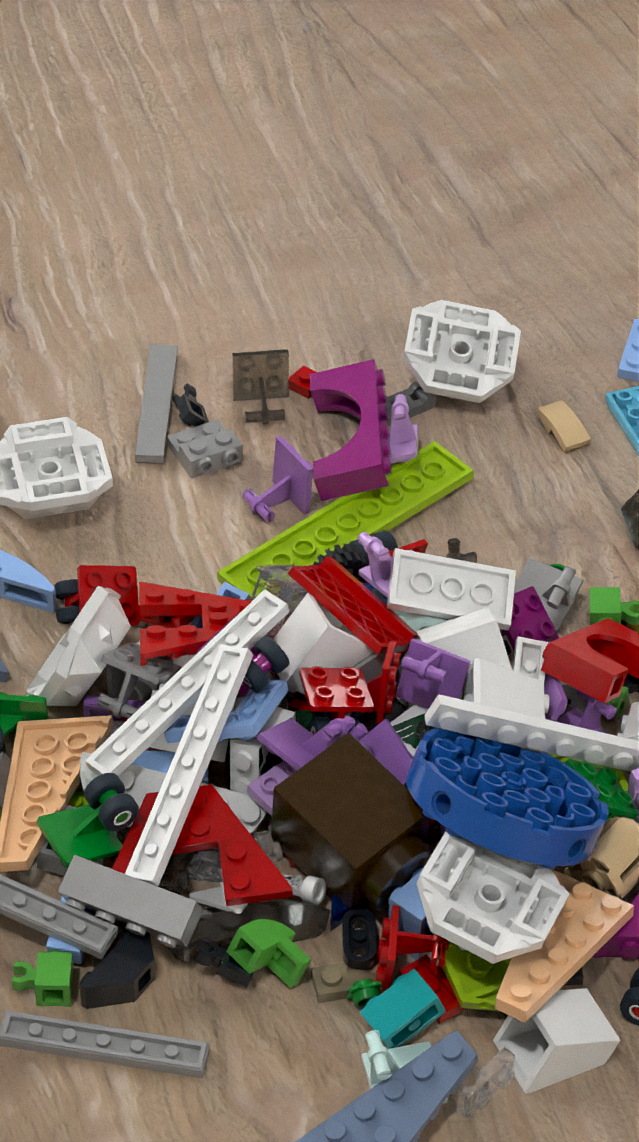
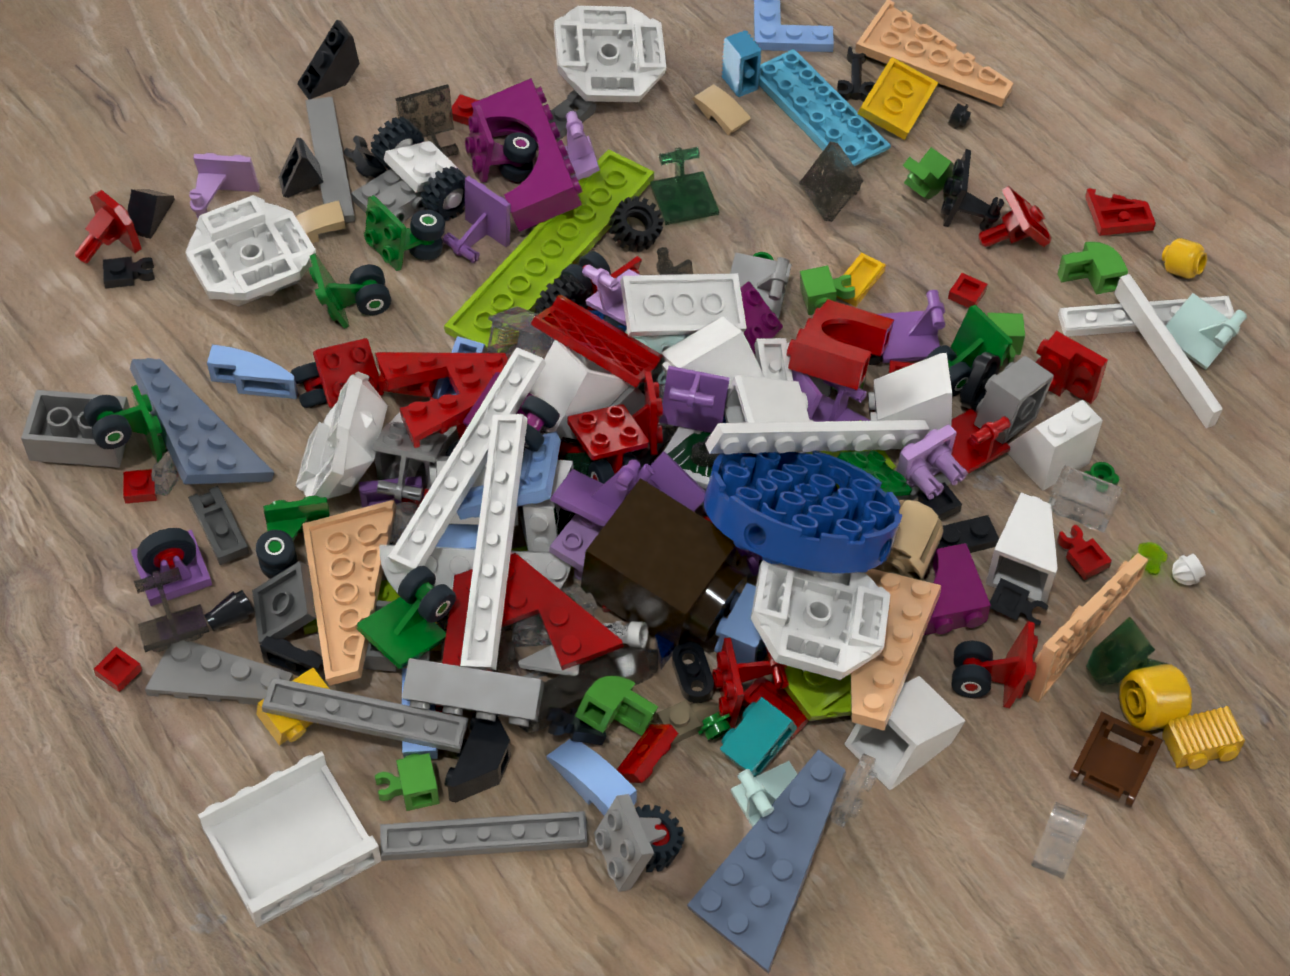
camera: 15 degrees left, 10 degrees up
(44, 394) = (220, 173): none -> lavender plate
(124, 405) = (300, 170): none -> black slope
(128, 454) = (321, 220): none -> tan slope
(151, 525) = (365, 289): none -> plate
(185, 314) = (331, 64): none -> black slope
(190, 482) = (392, 238): none -> green plate
(227, 1015) = (590, 775): none -> light blue slope
(241, 423) = (421, 166): none -> plate
(250, 1077) = (636, 840): none -> light grey plate
(296, 997) = (647, 752): none -> red plate
(335, 428) = (514, 156): none -> plate
(444, 501) = (645, 214): none -> black tyre
(498, 498) = (683, 196): none -> clear green plate
(594, 384) = (741, 63): none -> dark azure brick

